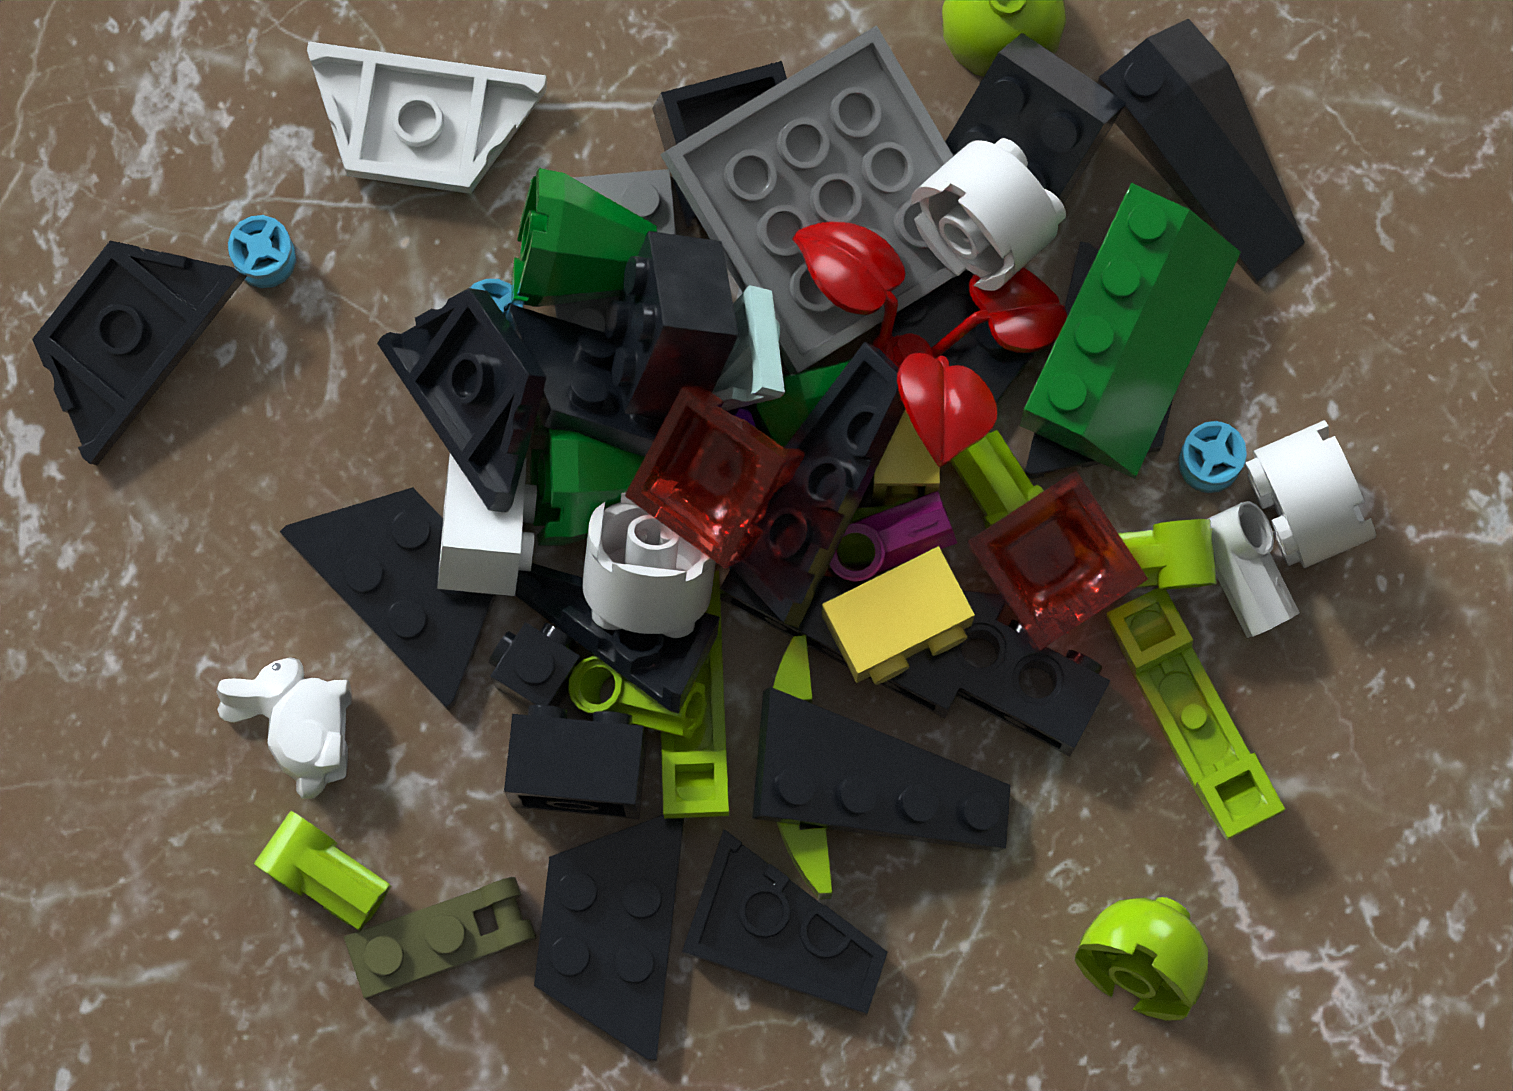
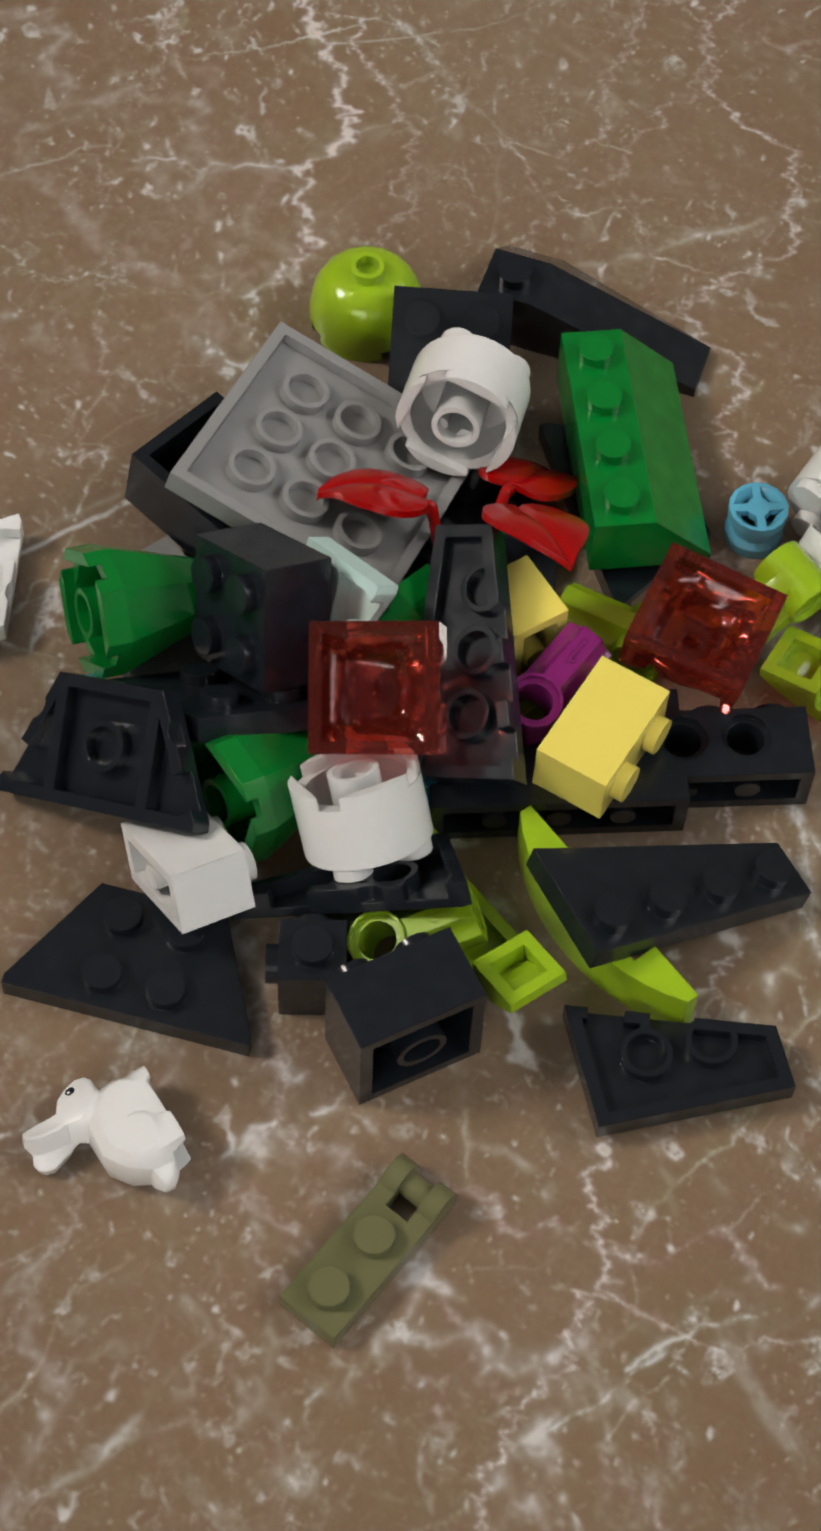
camera: 35 degrees left, 20 degrees down
(311, 864) = (204, 1247): lime piece -> none
(612, 930) = (521, 1154): black wing -> none

